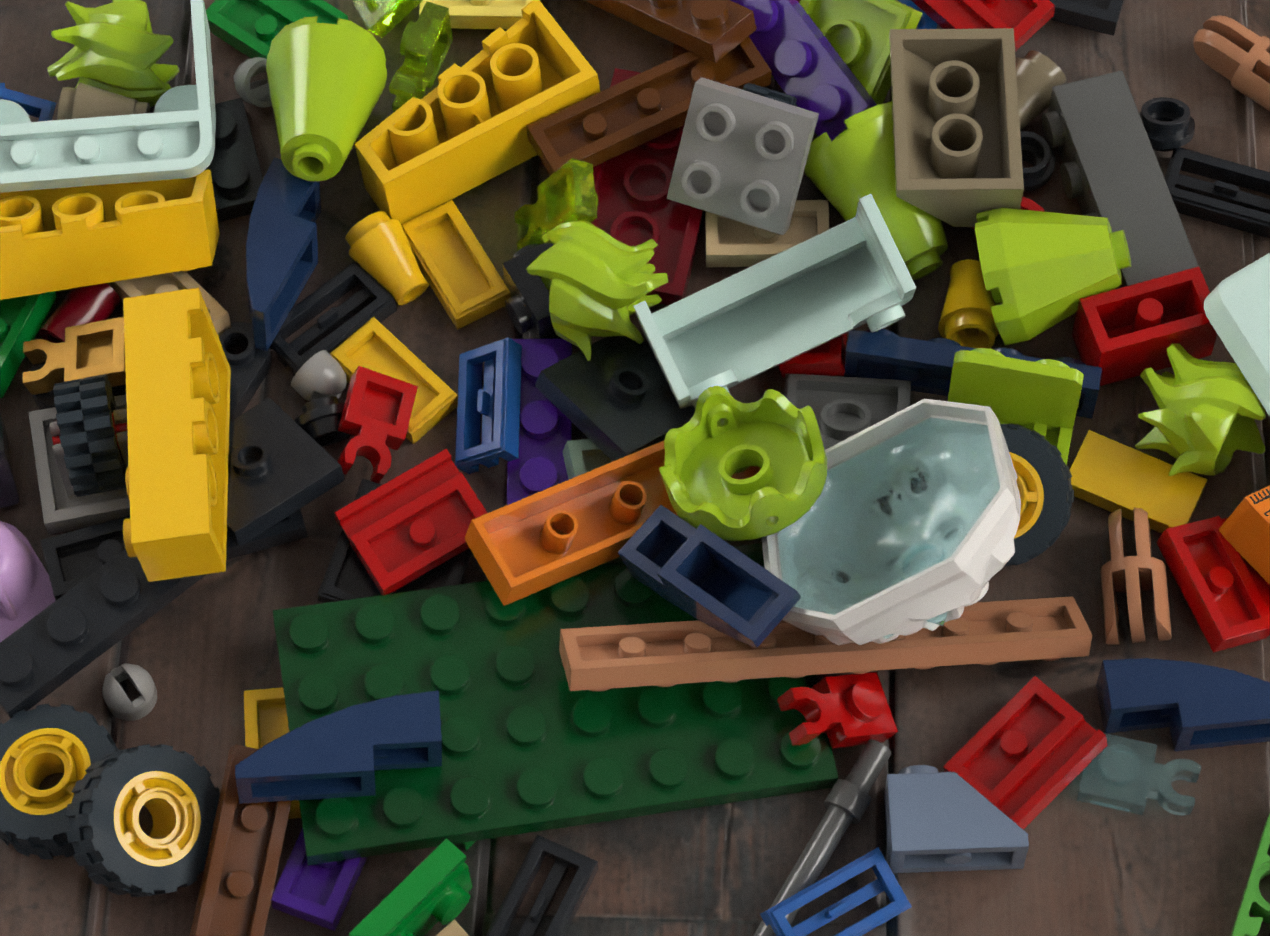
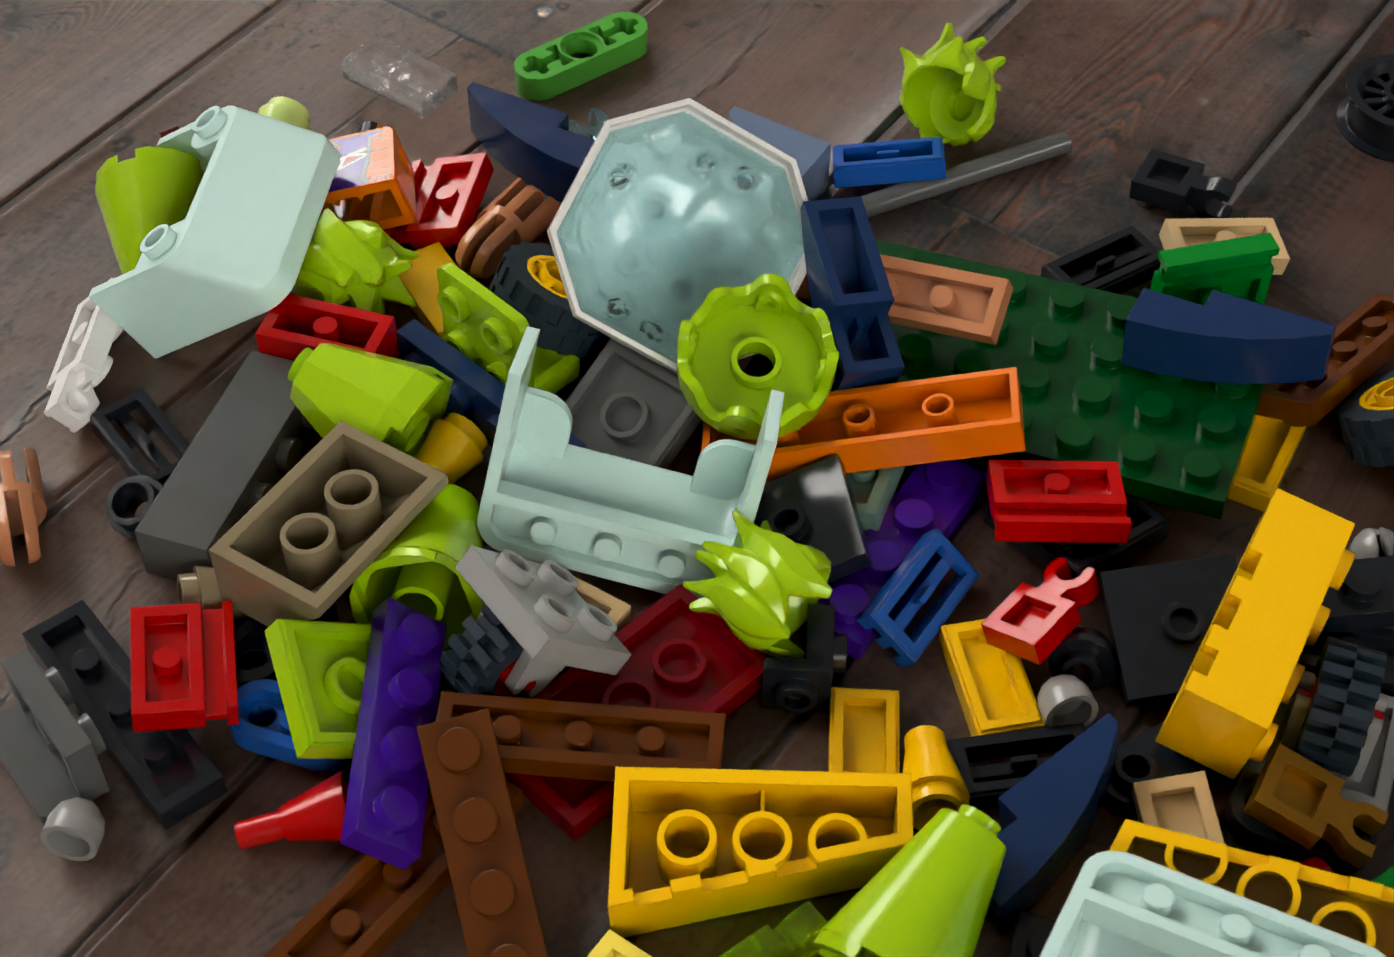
camera: 150 degrees left, 15 degrees down
(562, 199) = (740, 688): clear neon green plate -> none

